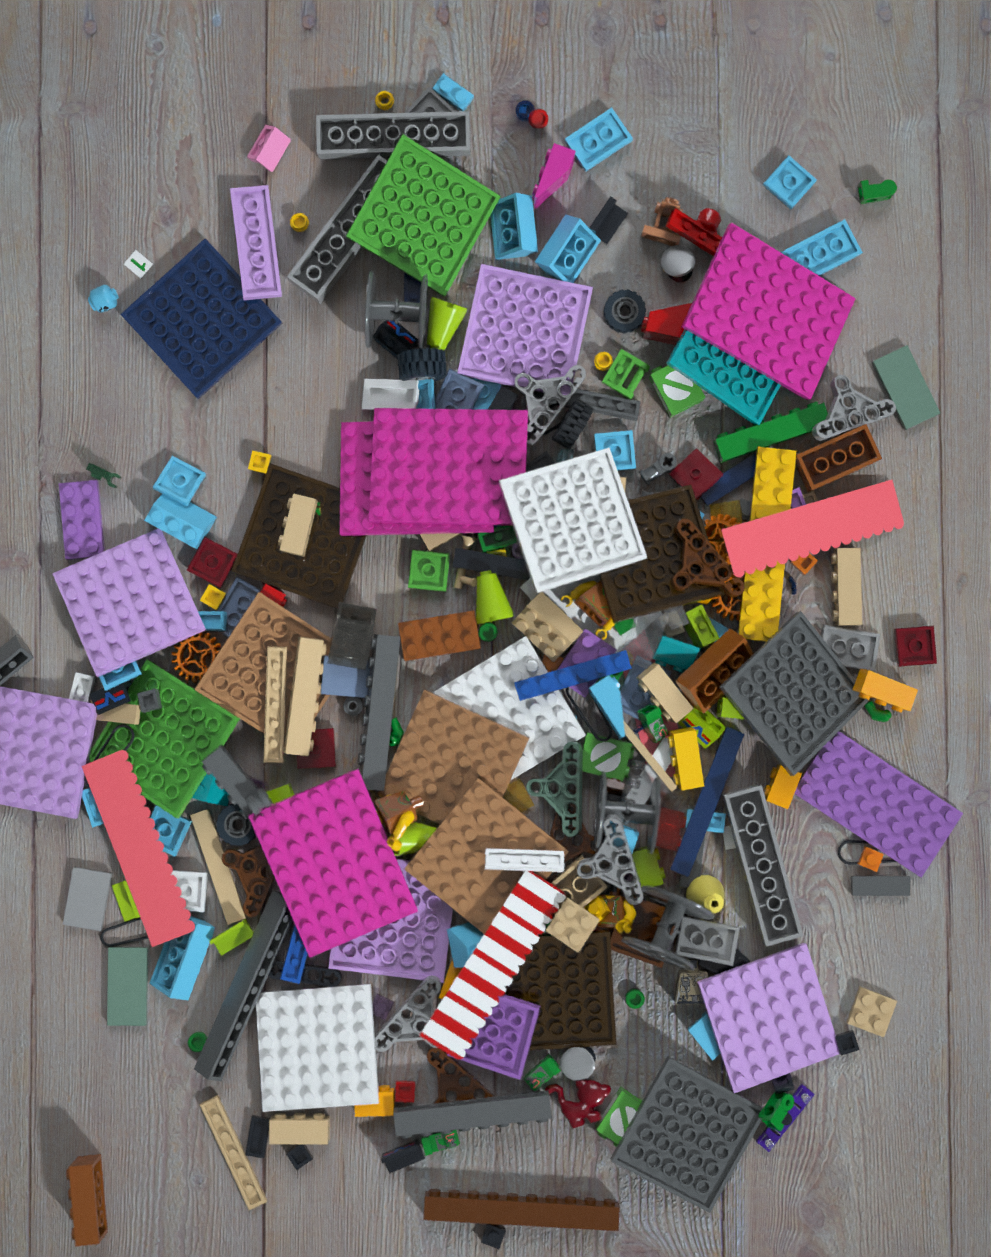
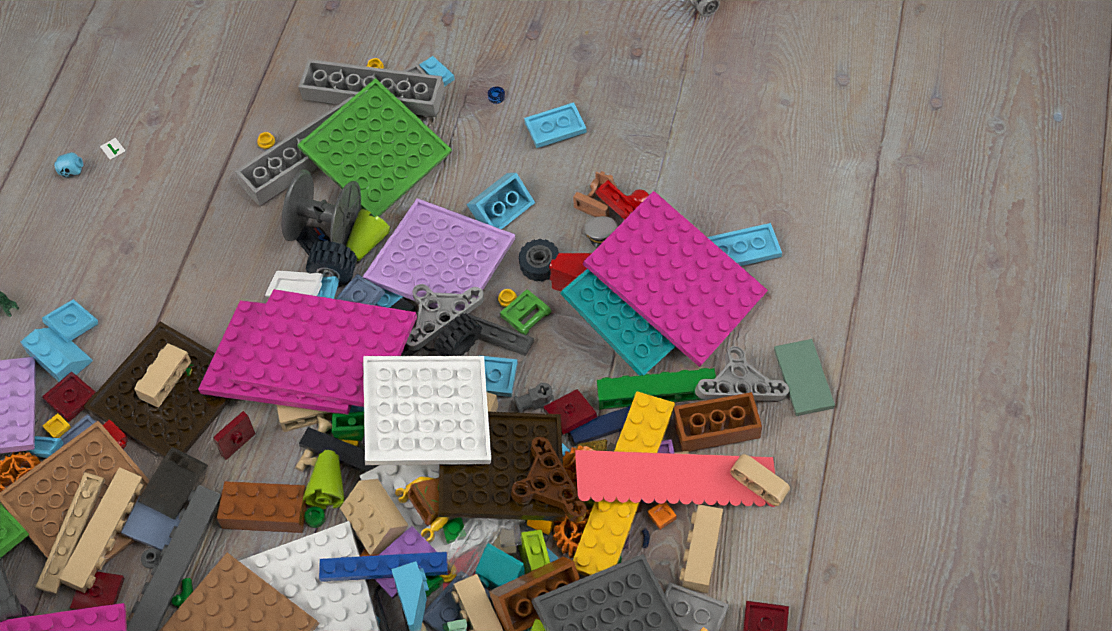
camera: 20 degrees right, 30 degrees down
(200, 319) = (148, 197): dark blue plate -> none
(255, 242) = (219, 147): lavender plate -> none
(259, 462) = (150, 319): yellow plate -> none
(269, 147) = (262, 83): bright pink panel -> none
(390, 573) = (234, 435): none -> dark red plate
(429, 570) = (275, 446): bright green plate -> none
(514, 227) = (457, 175): medium azure slope -> none
(538, 118) = (505, 101): red tile -> none
(558, 167) = (504, 139): dark pink slope -> none
(608, 220) = (545, 186): black panel -> none
(675, 390) = (571, 333): bright green brick -> none
(789, 182) = (724, 187): medium azure plate -> none
(876, 192) = (806, 208): green leg -> none
(887, 509) = (760, 480): none -> tan beam

